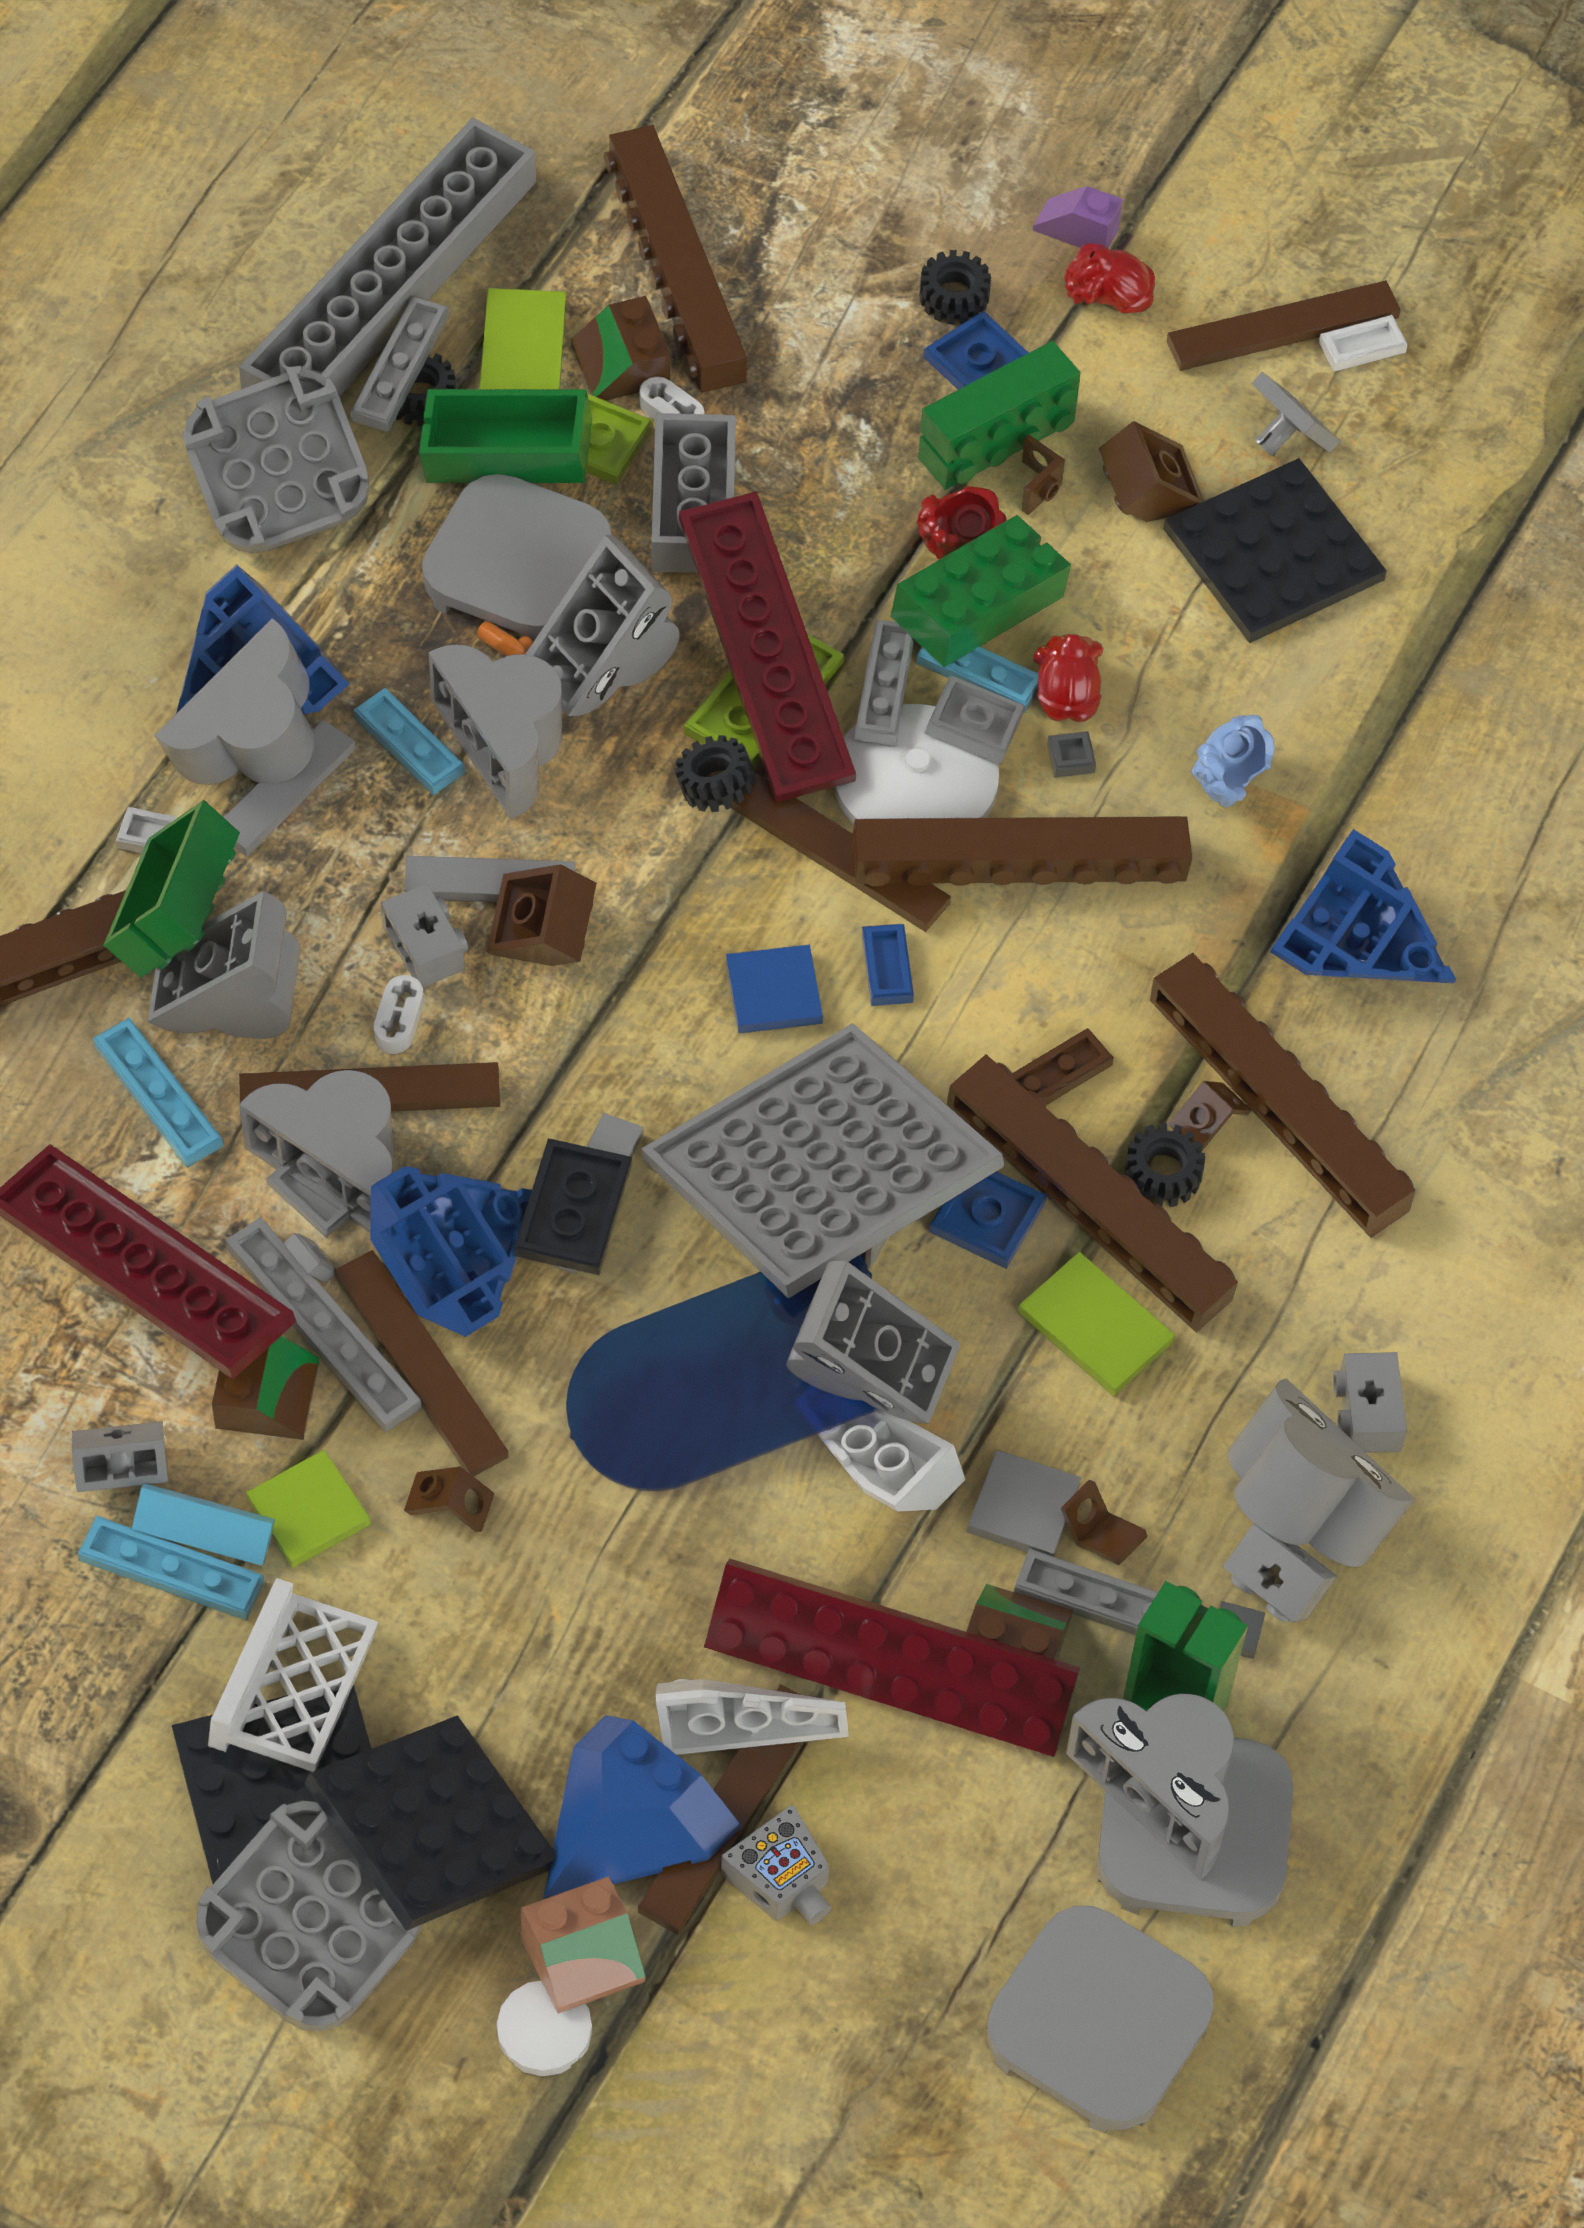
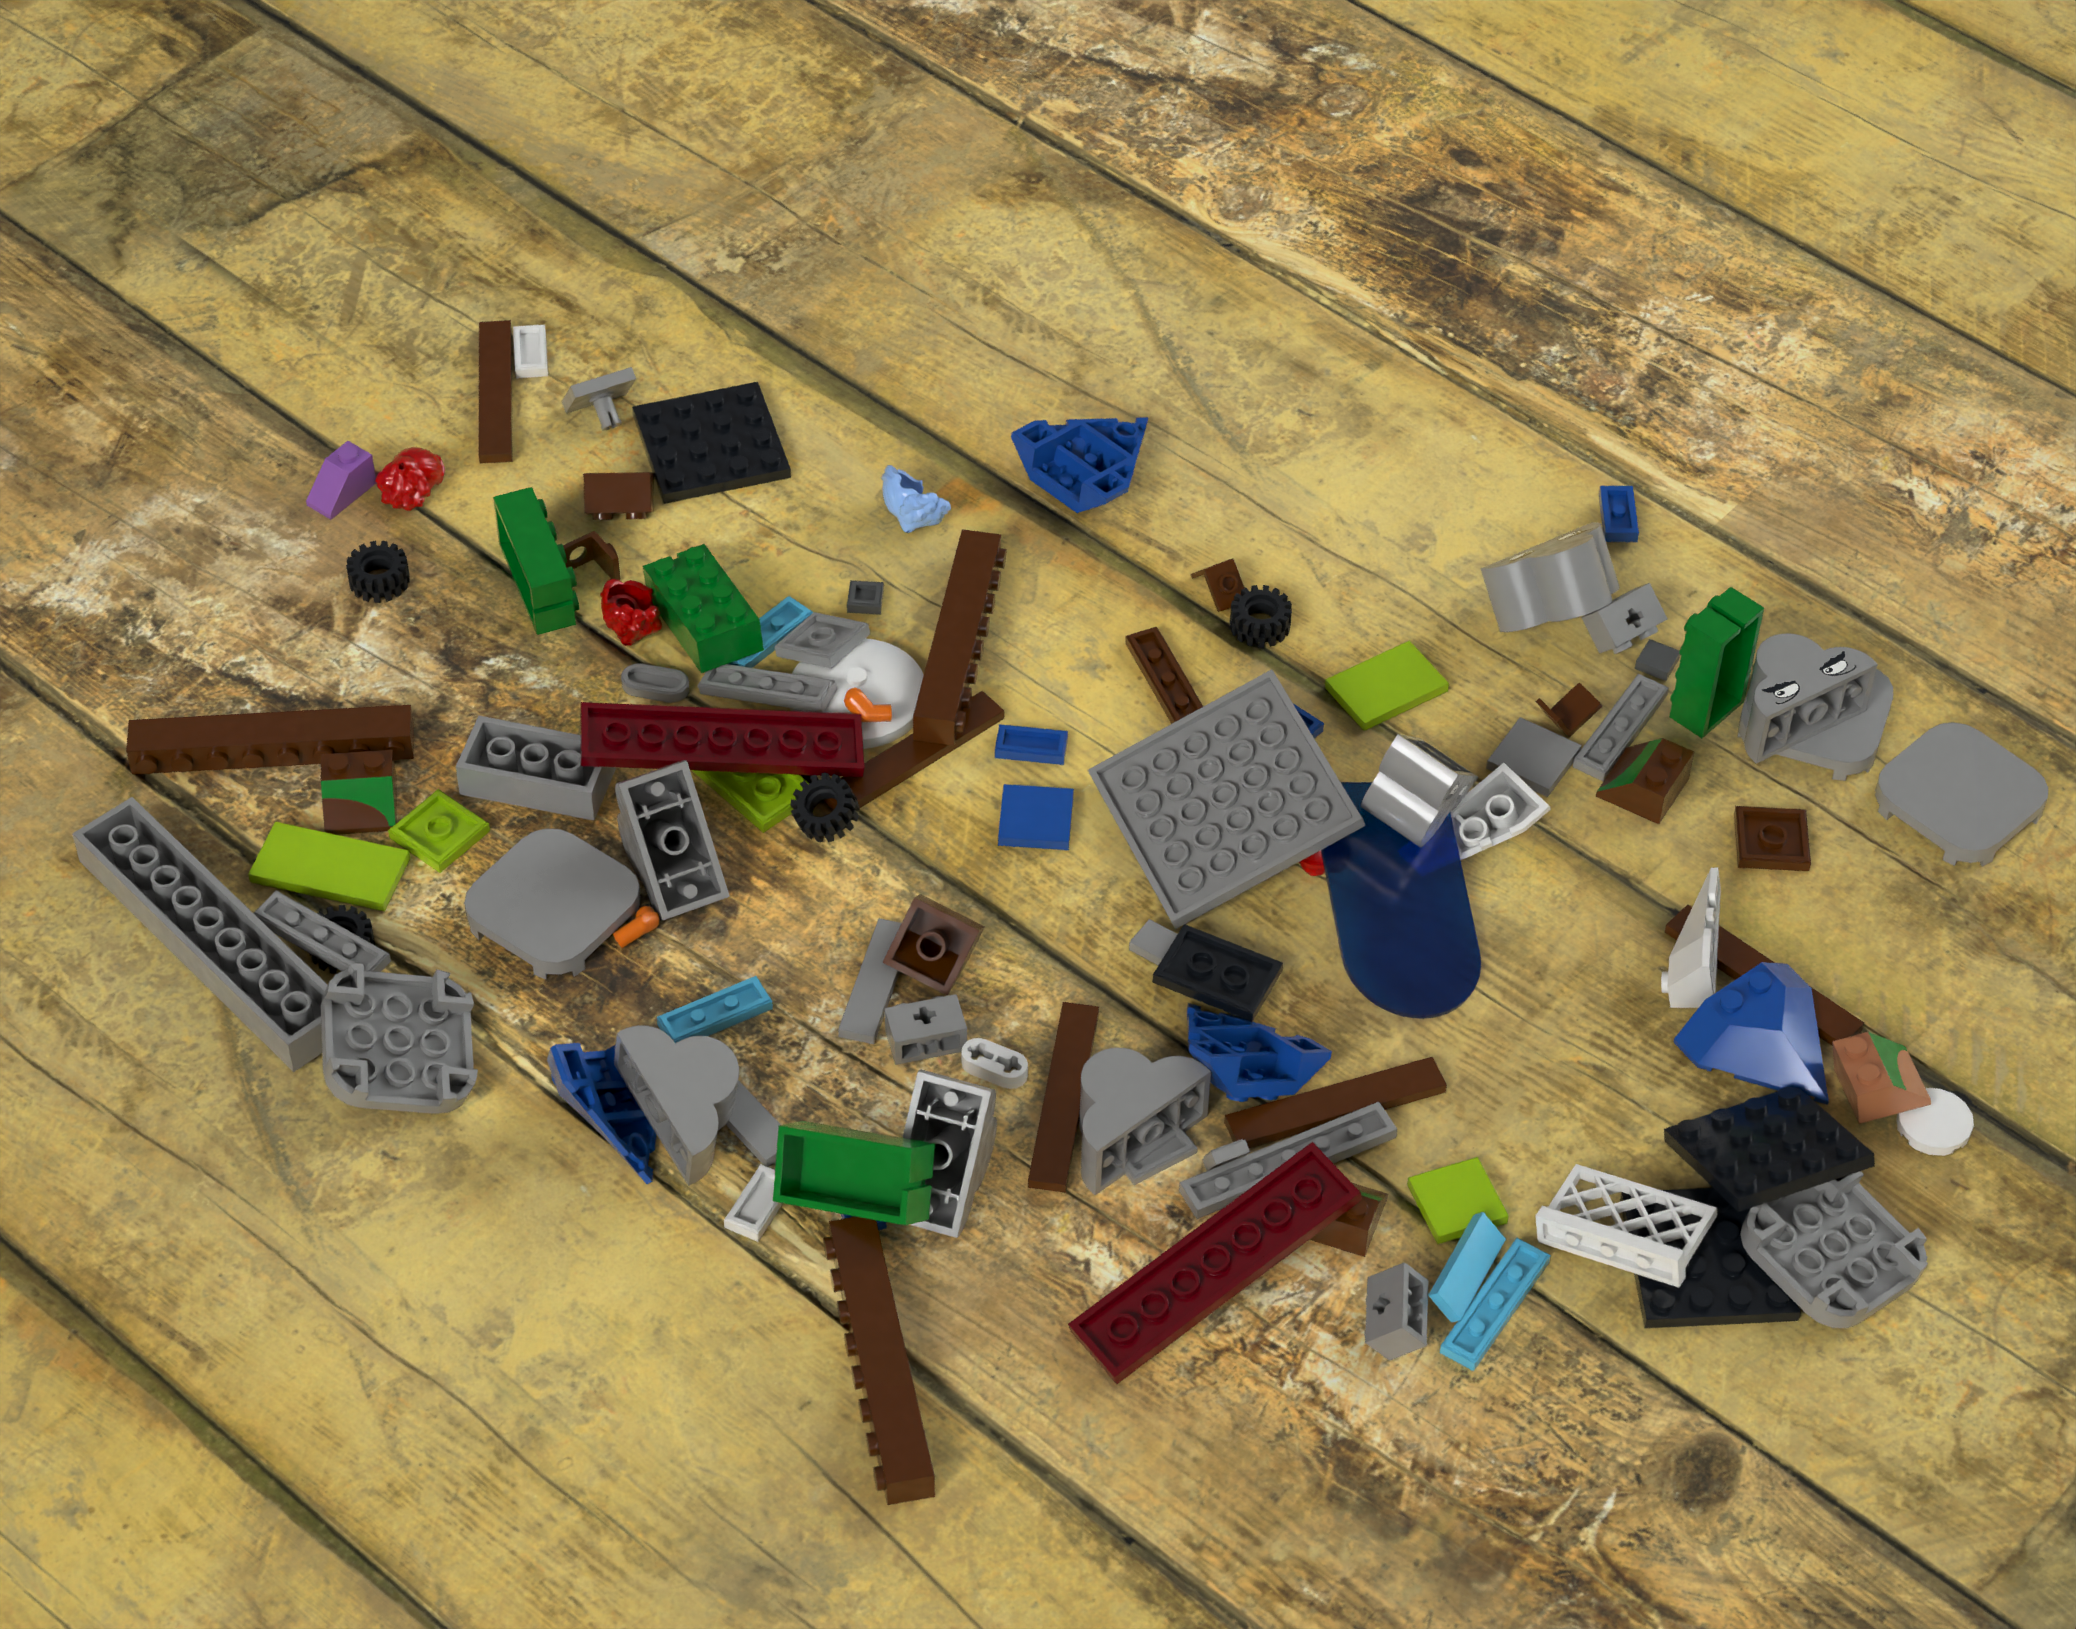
camera: 75 degrees left, 10 degrees down
(158, 1092) = (1026, 1245): medium azure tile -> none
(446, 1491) = (1463, 1106): reddish brown bracket -> none
(501, 716) = (736, 931): light grey brick -> none
(506, 432) = (431, 876): green piece -> none
(674, 401) = (426, 776): white beam -> none
(780, 1868) = (1822, 948): light grey torso -> none
(869, 768) = (858, 703): none -> orange arm
(873, 581) = (655, 682): none -> light grey tile
(891, 1657) = (1661, 849): dark red plate -> none
(965, 1798) = (1772, 838): none -> reddish brown tile
(973, 350) = (452, 575): blue tile -> none
(1069, 677) = (797, 576): red hair -> none
(1092, 1192) = (1288, 651): reddish brown brick -> none
(1283, 1094) = (1214, 538): reddish brown brick -> none
(1376, 1380) = (1486, 541): light grey brick -> none
(1485, 1550) = (1618, 513): none -> blue plate

